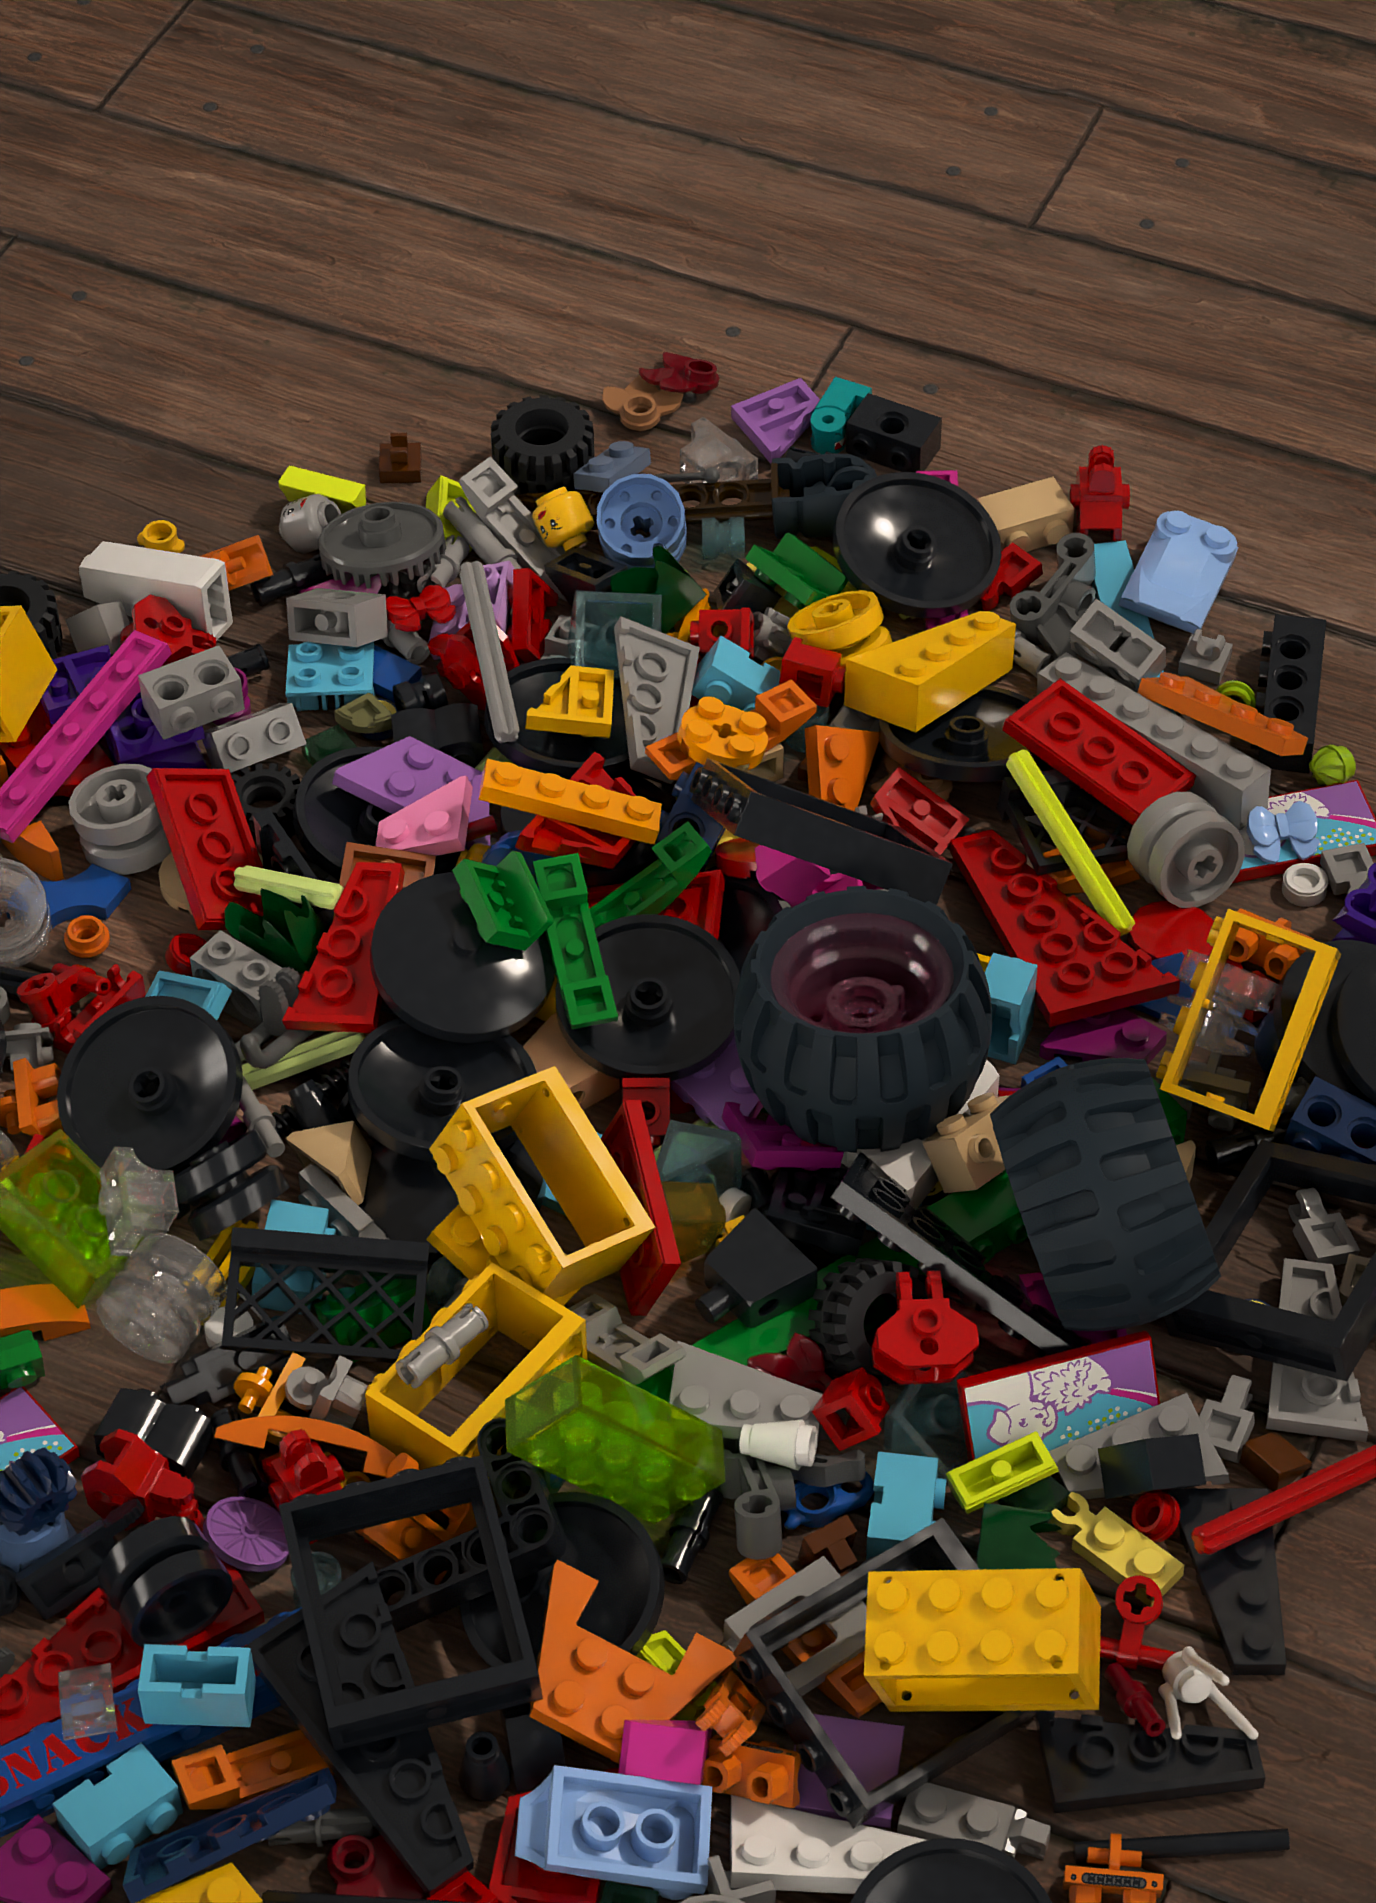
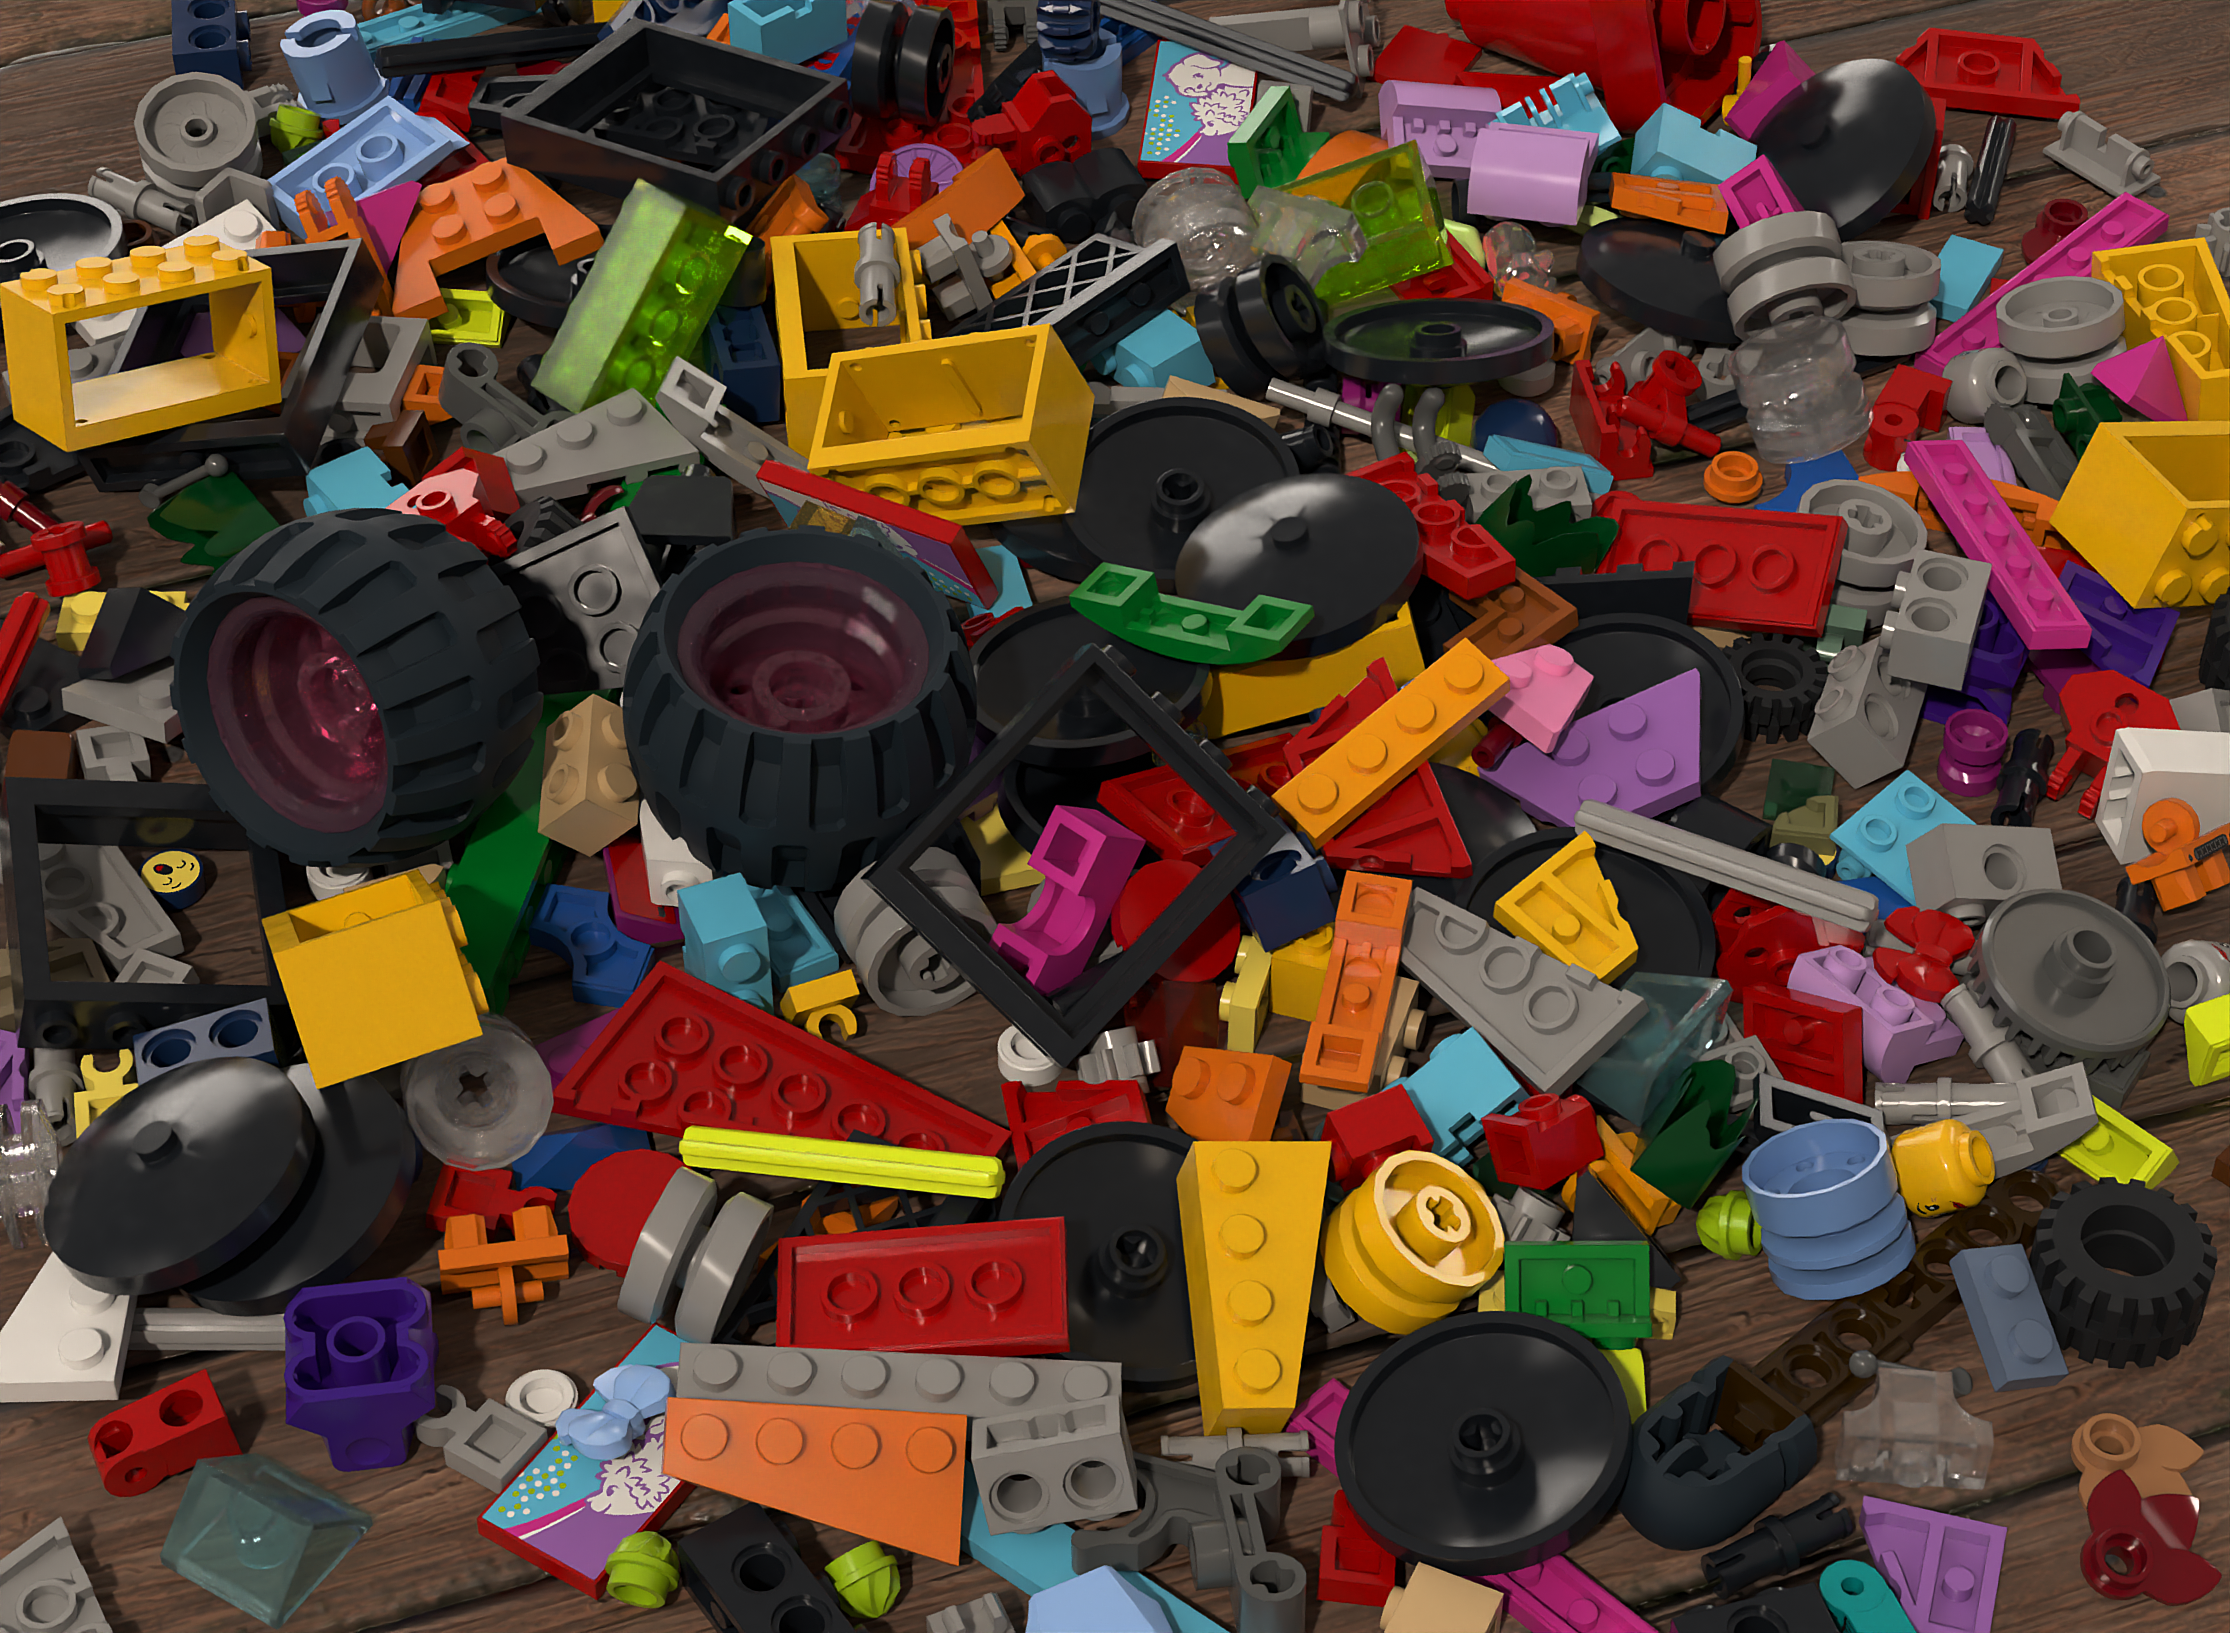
camera: 135 degrees right, 5 degrees down
(318, 892) = (1572, 548): yellowish green axle -> none
(504, 901) = (1295, 557): green bracket -> none
(659, 884) = (1255, 745): green slope -> none
(712, 719) = (1352, 912): light orange plate -> none
(723, 538) = (1758, 1326): clear light blue wheel -> none
(782, 1443) = (502, 421): white cone -> none

